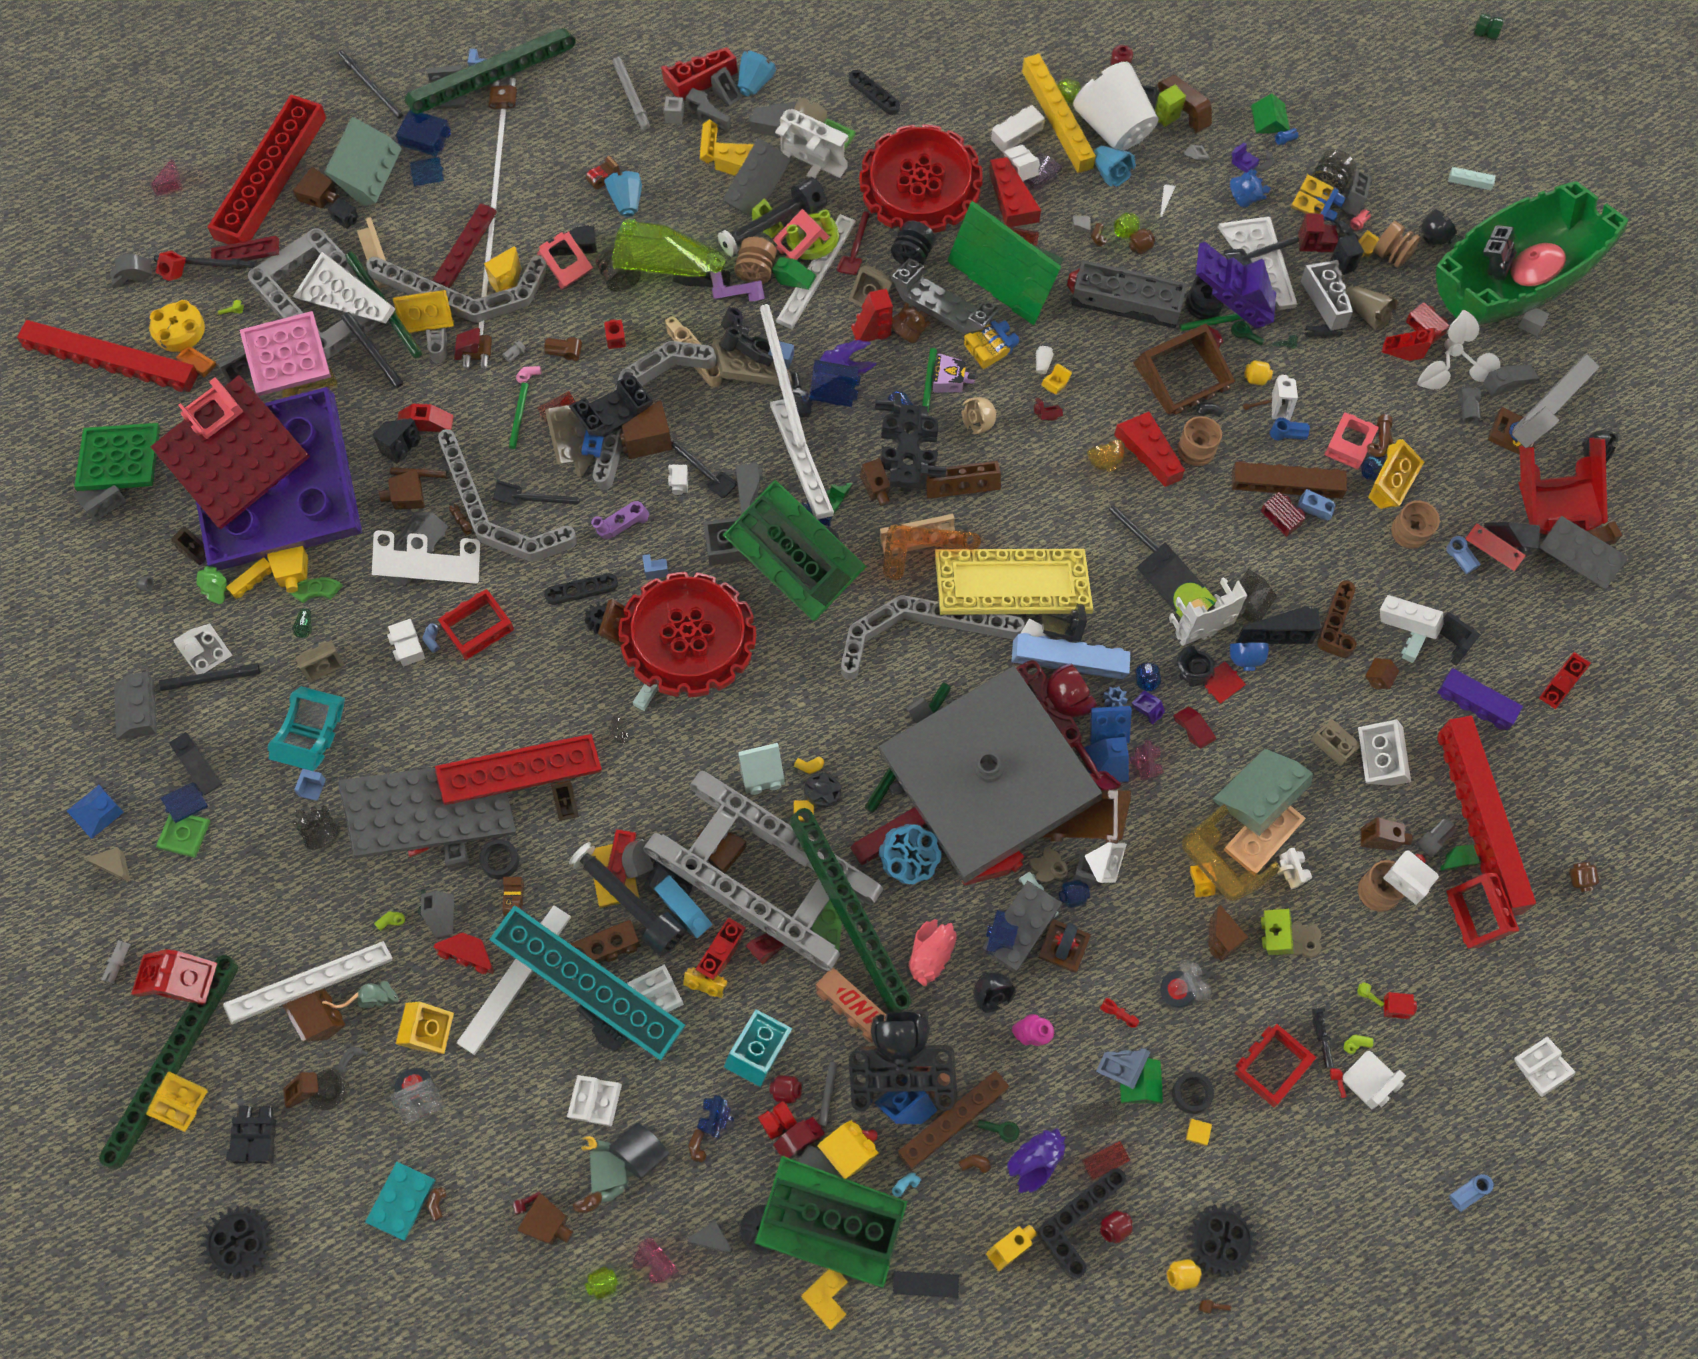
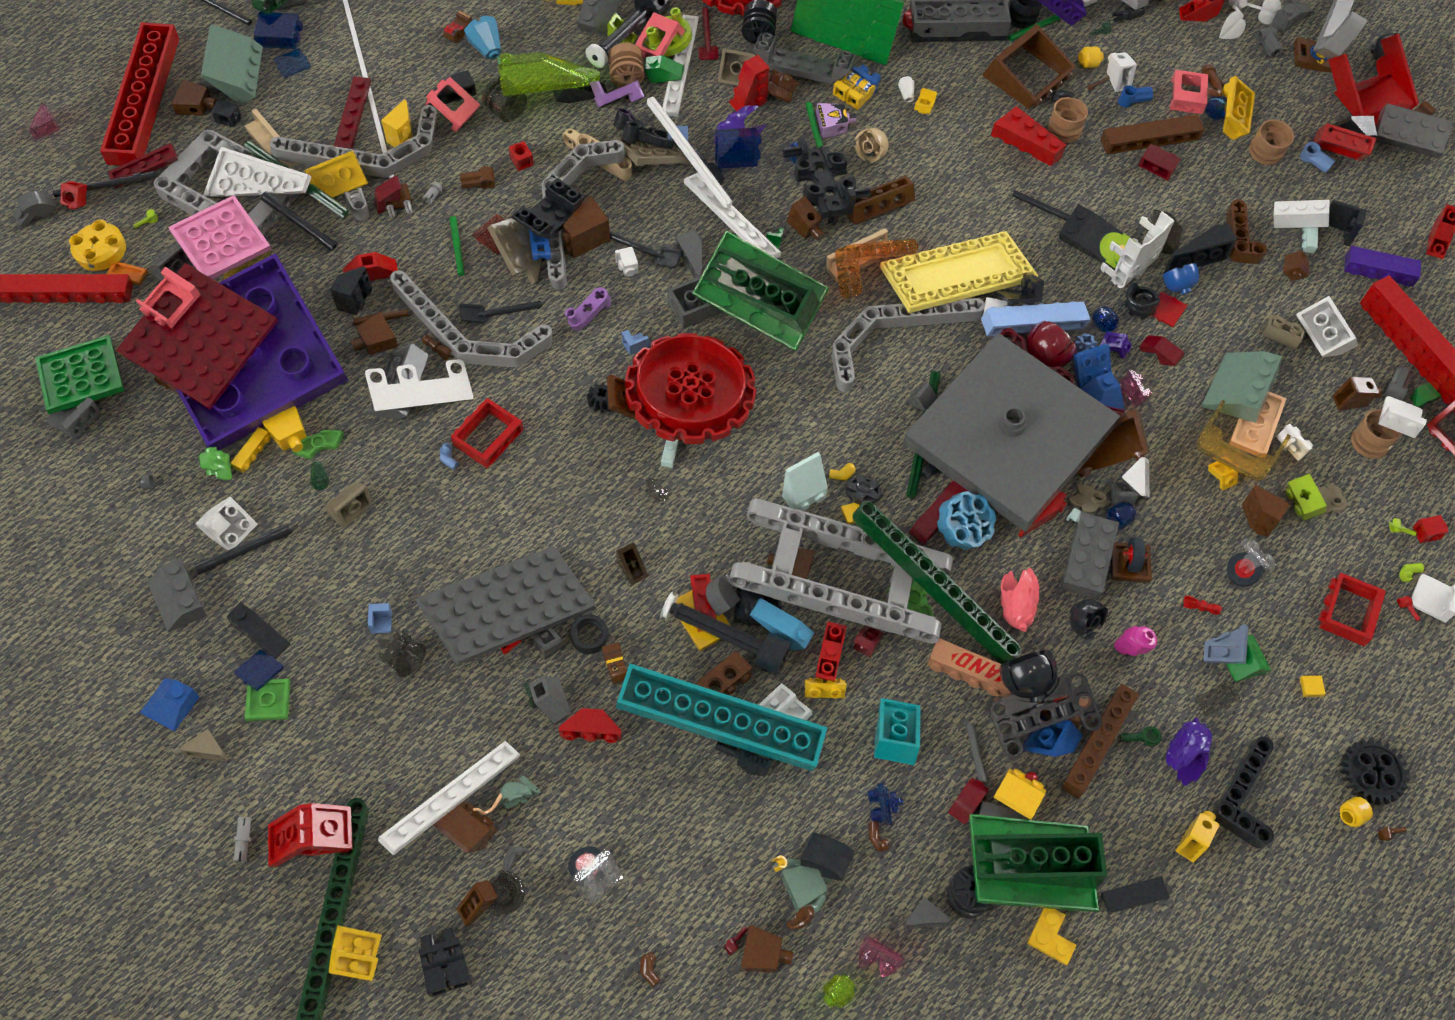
camera: 20 degrees left, 5 degrees down
(189, 545) = (181, 435): dark brown slope -> none
(307, 728) = (358, 567): teal window -> none
(390, 918) = (504, 718): lime arm -> none
(400, 1201) = (613, 978): teal plate -> none
(406, 642) = (428, 470): white piece -> none
(424, 1027) = (576, 808): yellow slope -> none
(505, 991) = (639, 758): white tile -> none
(517, 769) = (577, 547): red plate -> none
(526, 372) = (450, 208): bright pink arm -> none
(581, 591) = (571, 375): black beam -> none
(594, 1100) = (764, 826): white slope -> none
(777, 1120) = (943, 788): red wheel -> none
(786, 1089) = (938, 759): dark red head -> none
(903, 1183) = (1077, 812): medium azure arm -> none
(976, 1161) = (1133, 770): reddish brown arm -> none
(1000, 934) = (1079, 562): clear blue brick -> none
(1050, 413) = (927, 130): dark red bracket -> none
(1106, 1160) = (1245, 734): clear red plate -> none
(1107, 455) = (994, 150): clear yellow cylinder -> none
(1116, 1227) = (1280, 789): dark red head -> none
(1204, 1081) = (1285, 664): black tyre -> none
(1241, 329) = (1062, 28): dark green plate -> none
(1316, 505) = (1183, 148): medium blue leg -> none
(1320, 1028) = (1373, 565): black piece -> none

